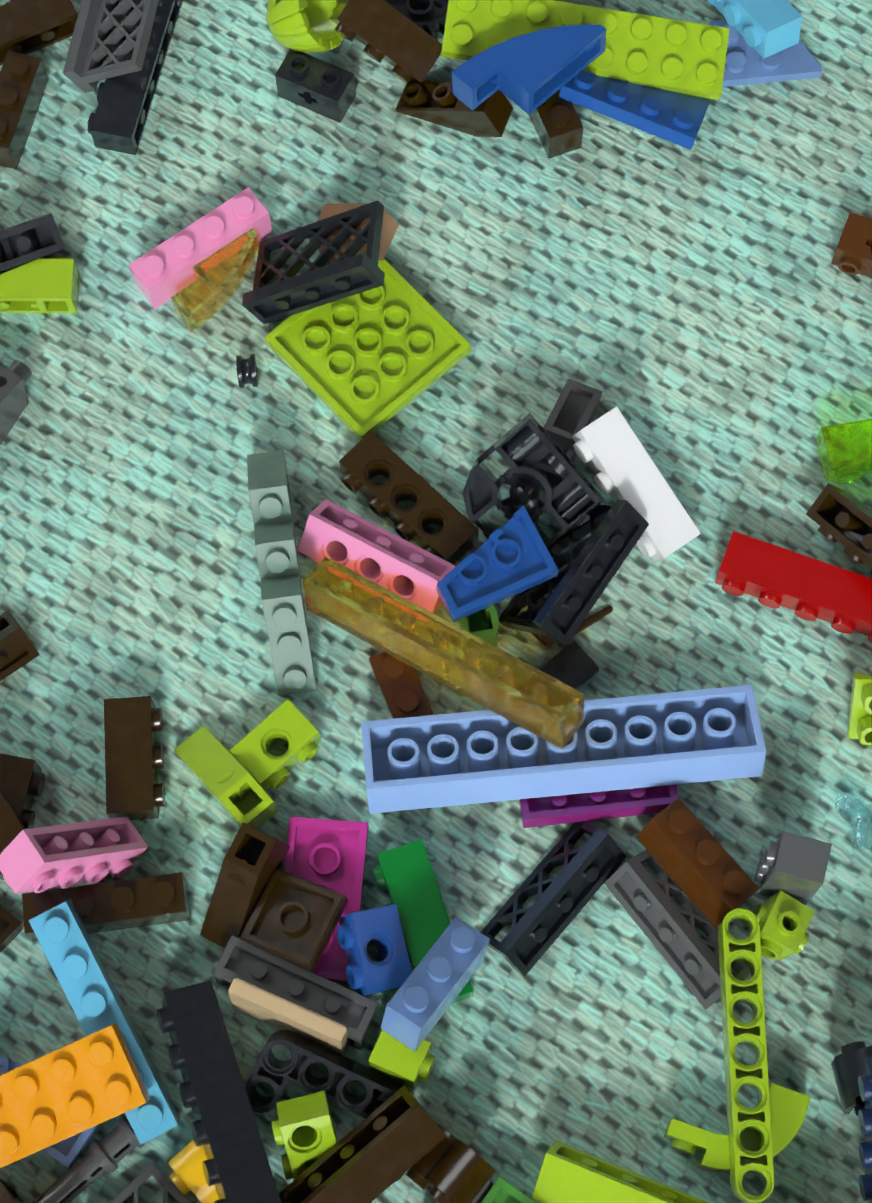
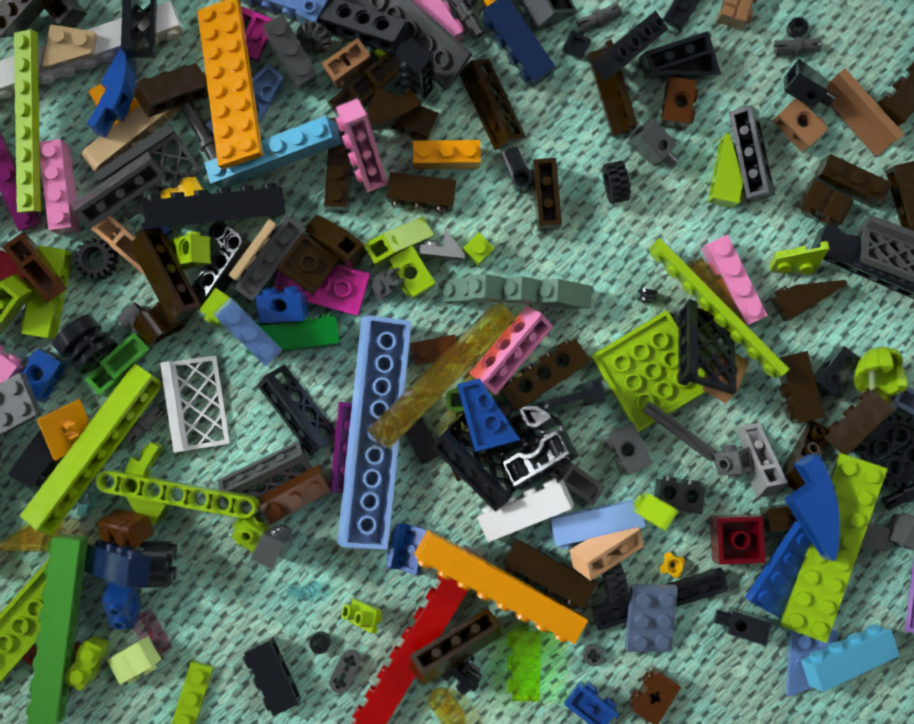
camera: 95 degrees right, 15 degrees up
(54, 141) = (825, 204): none -> dark brown brick
(60, 728) = (446, 154): none -> light orange brick
(64, 611) = (517, 168): none -> black piece
(67, 446) = (616, 182): none -> black tyre
(105, 551) = (546, 194): none -> dark brown brick
(151, 161) = (798, 259): none -> lime wing
(214, 155) = (800, 297): none -> dark brown slope
(217, 644) = (478, 249): none -> lime brick
(226, 694) = (449, 251): none -> light grey slope
(243, 267) = (722, 313): none -> lime plate
(302, 784) = (385, 283): none -> dark grey plate
(351, 131) = (800, 389): none -> dark brown brick
(430, 427) = (591, 393): none -> black fence
(455, 285) = (679, 431): none -> dark grey axle
(479, 163) = (767, 474): none -> light grey slope
(486, 200) = (733, 461): none -> dark grey brick
(509, 337) = (638, 458): none -> dark grey brick
(561, 270) = (678, 497): none -> pearl dark grey brick
(590, 286) = (654, 510): none -> lime slope
(592, 1112) = (175, 408): none -> white fence
(604, 174) = (737, 539): none -> dark red brick
(628, 378) = (593, 523): none -> light blue brick
(635, 1160) = (144, 424): none -> dark grey pin
(668, 253) = (678, 565): none -> yellow plate
(674, 357) = (605, 551): none -> light nougat slope
(714, 334) = (616, 584): none -> black tyre
(725, 271) = (689, 590): none -> black plate
(726, 436) = (548, 572): none -> dark brown brick
(732, 142) = (753, 628): none -> black torso
(742, 660) = (404, 543): none -> blue bracket
(757, 275) = (651, 617): none -> sand blue plate
(765, 501) = (500, 586): none -> light orange brick
(828, 1143) = (125, 528): none -> reddish brown brick
(841, 340) = (588, 660): none -> dark grey bush

